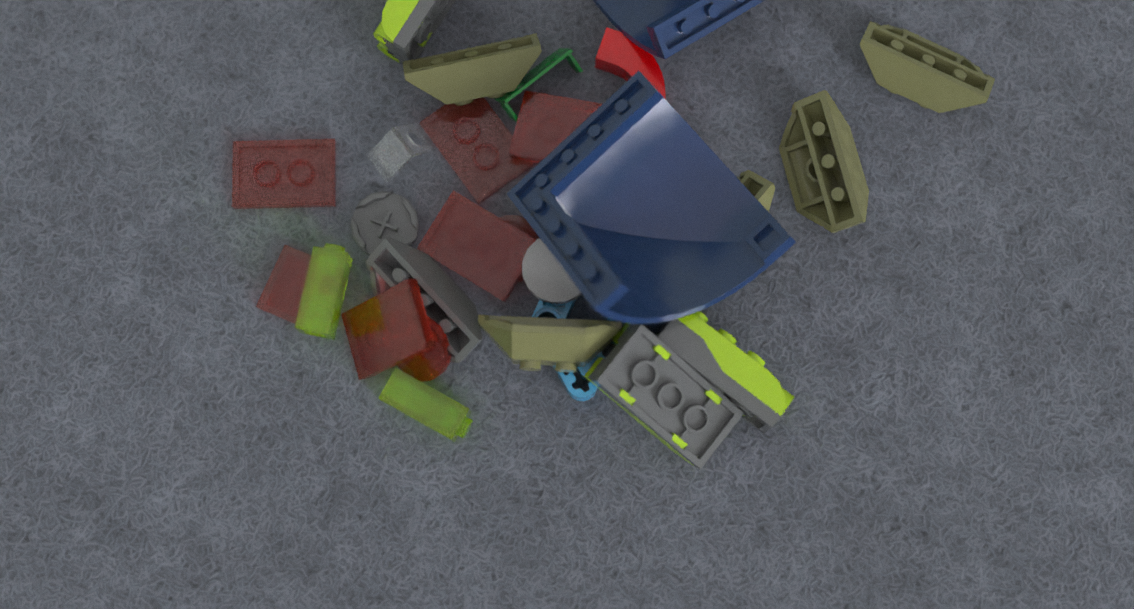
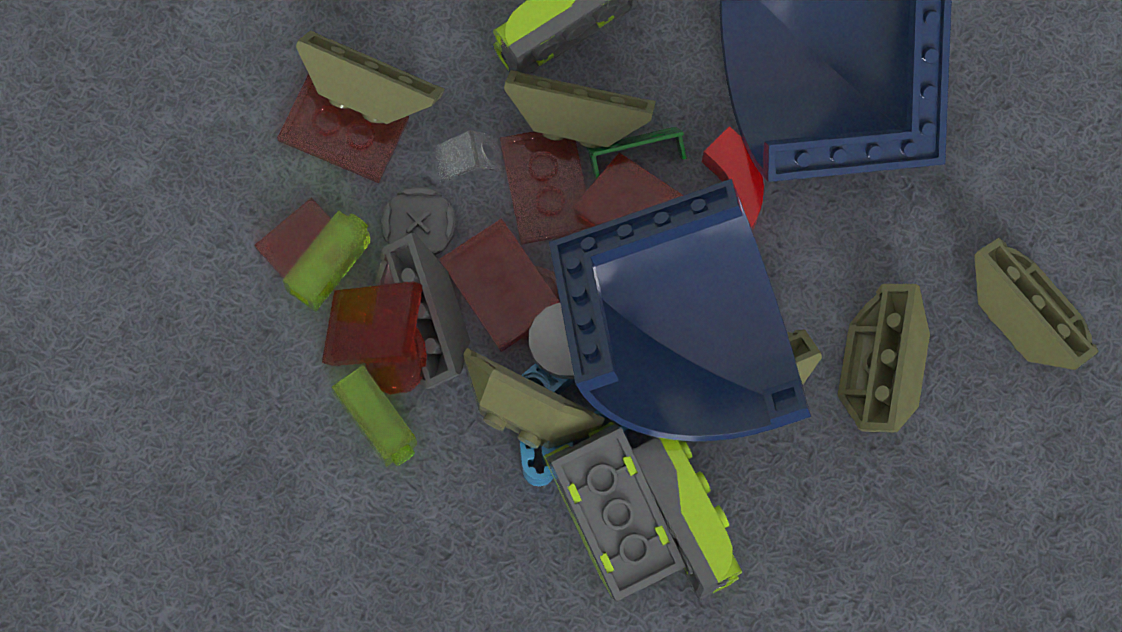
camera: 20 degrees right, 5 degrees down
(283, 127) = (363, 82): none -> olive wedge

